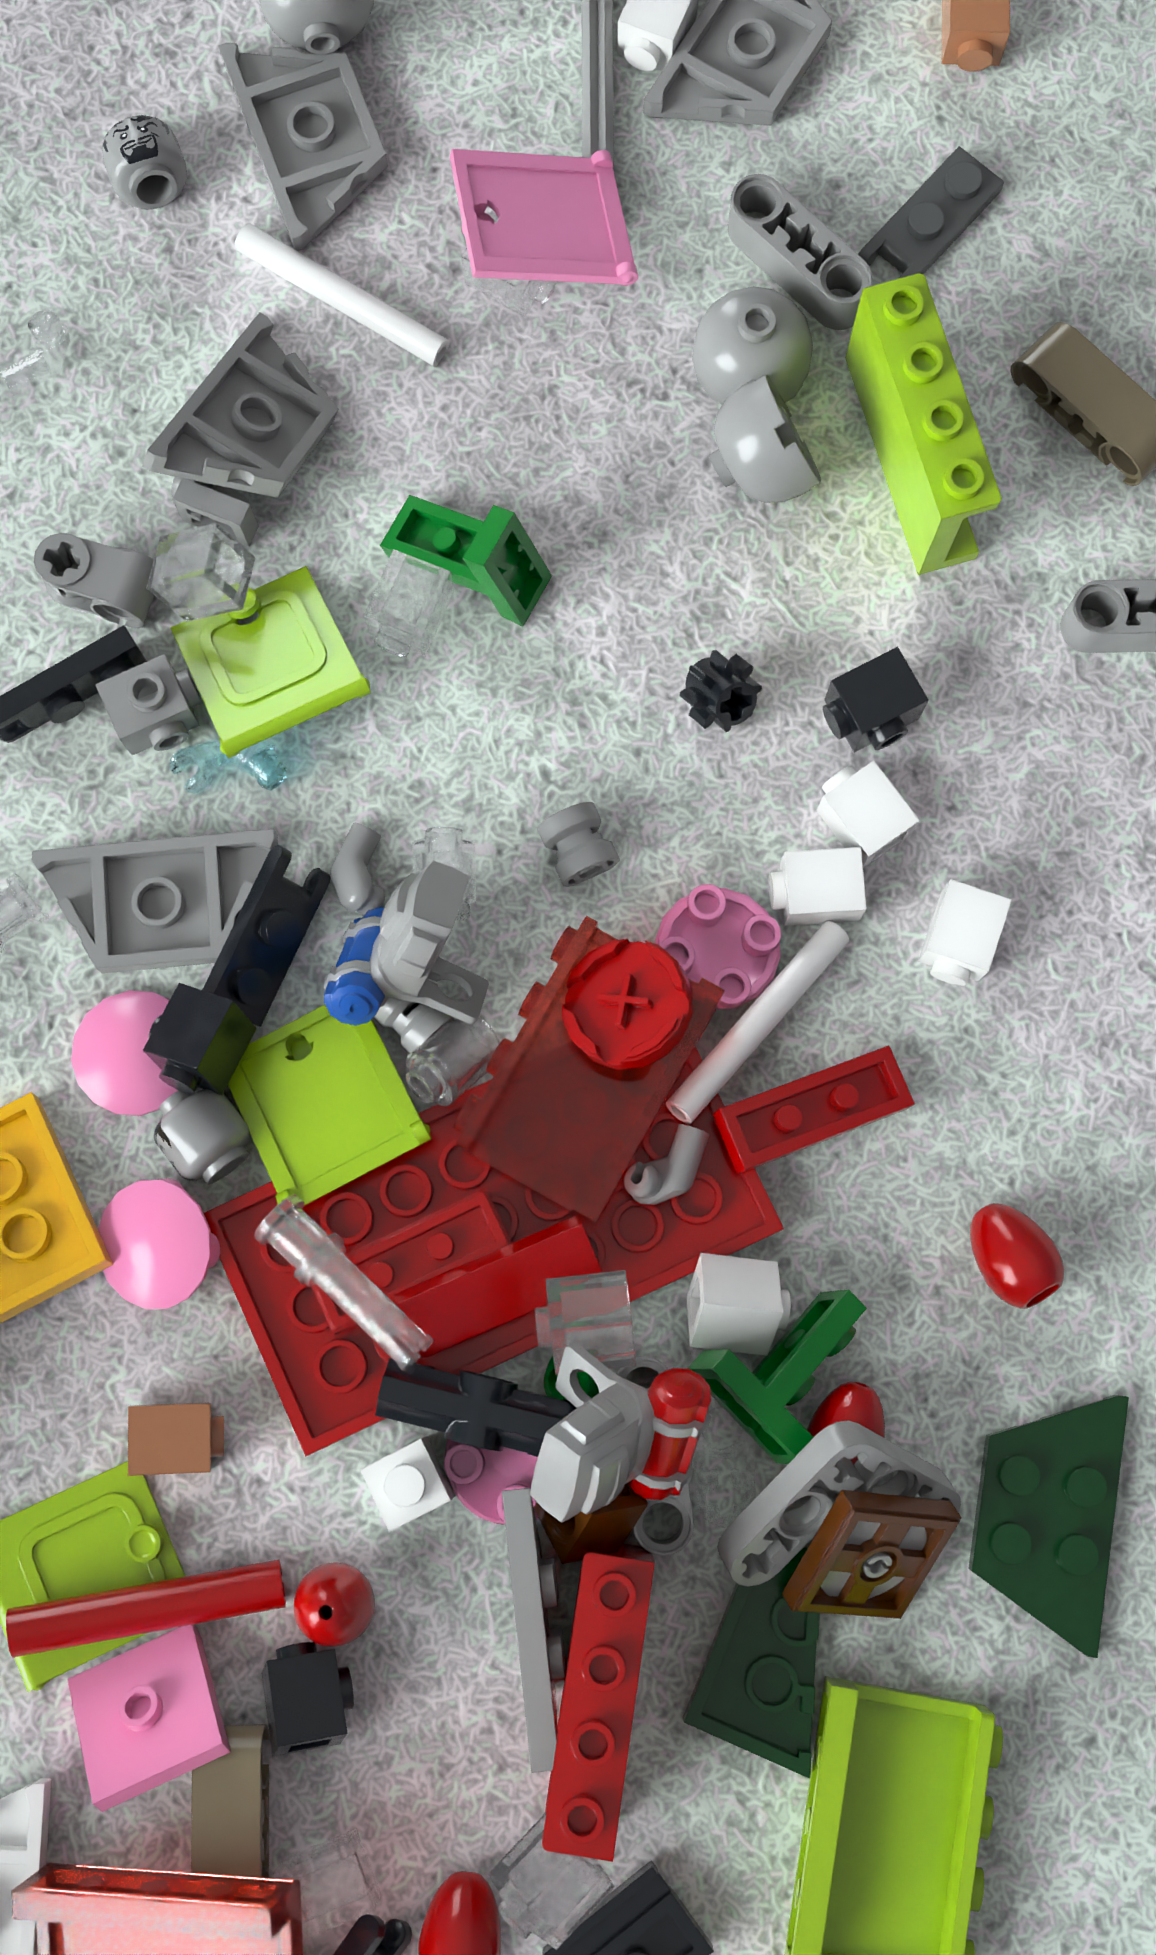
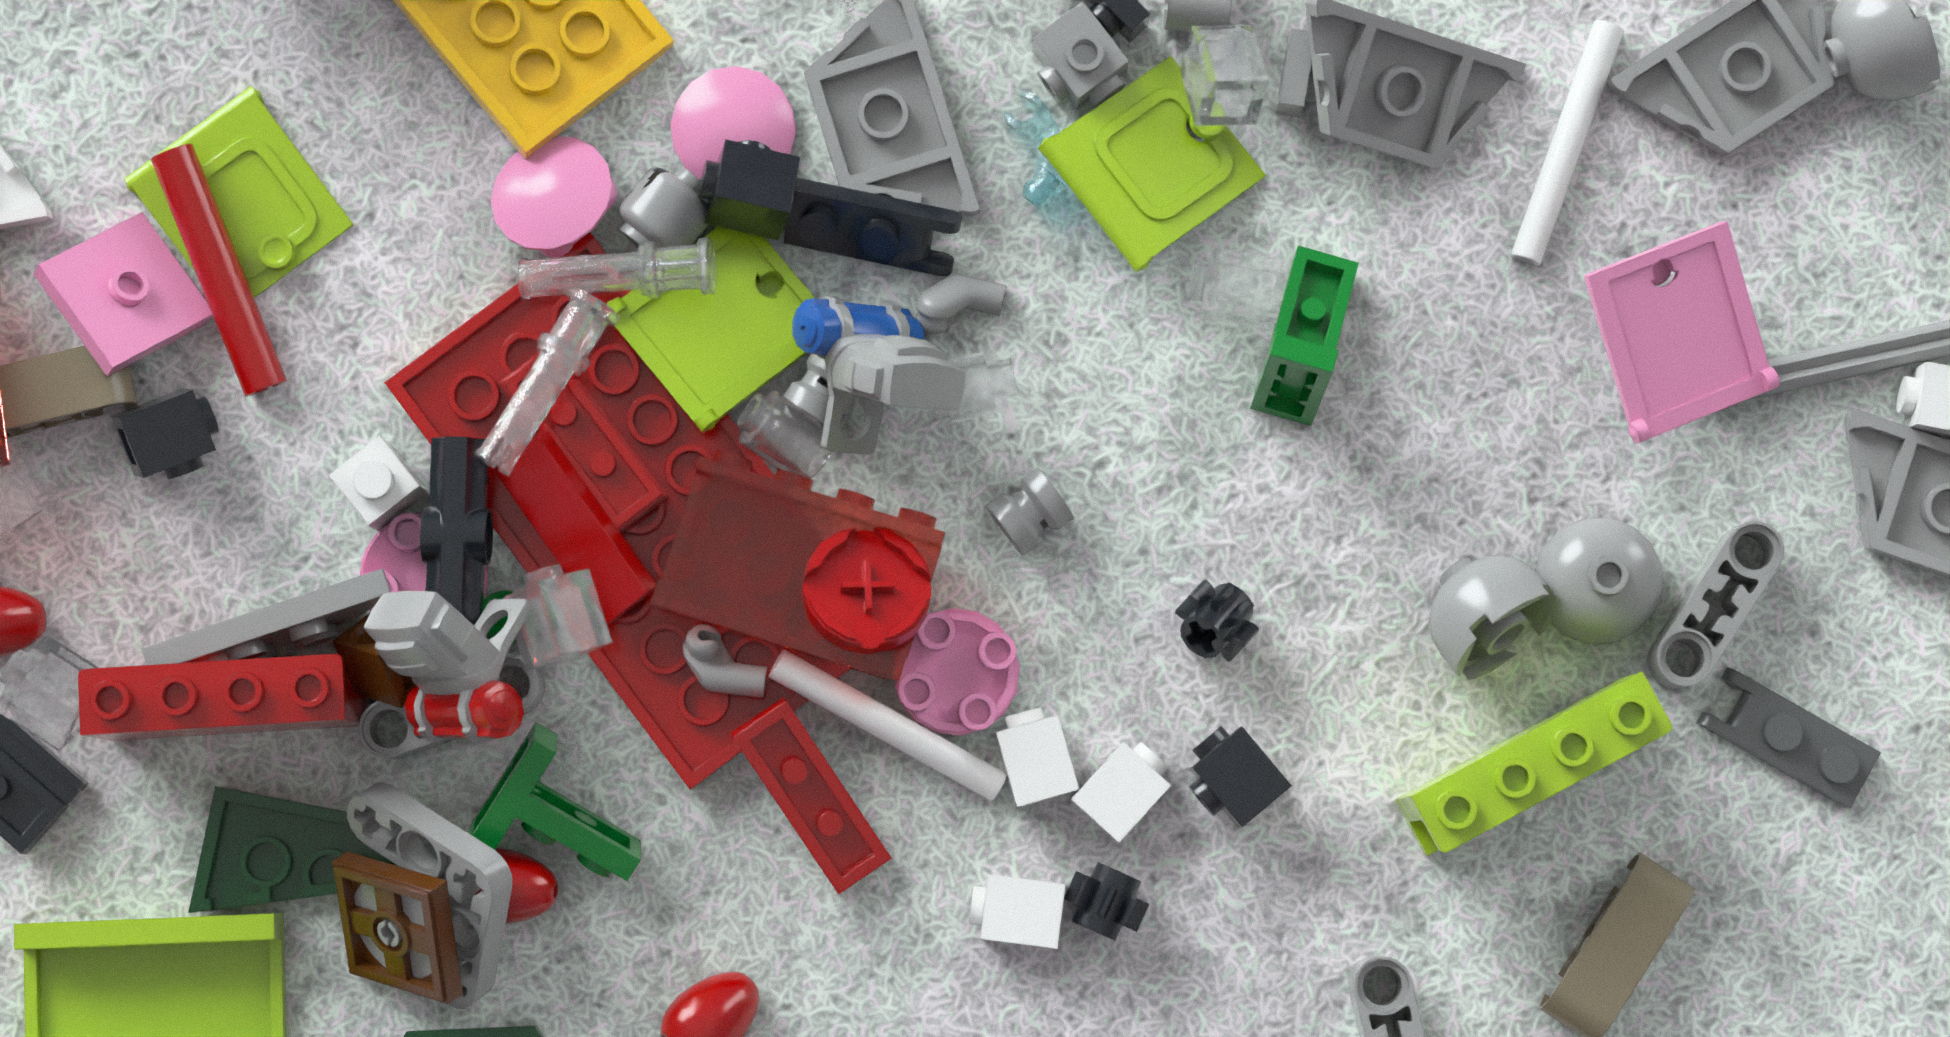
camera: 75 degrees right, 5 degrees up
(173, 1438) = (375, 256): nougat brick -> none
(256, 1145) = (651, 268): none -> clear pin
(345, 1592) = (265, 450): red animal -> none
(736, 1304) = (606, 757): white brick -> none
(970, 848) = (1106, 901): none -> black gear

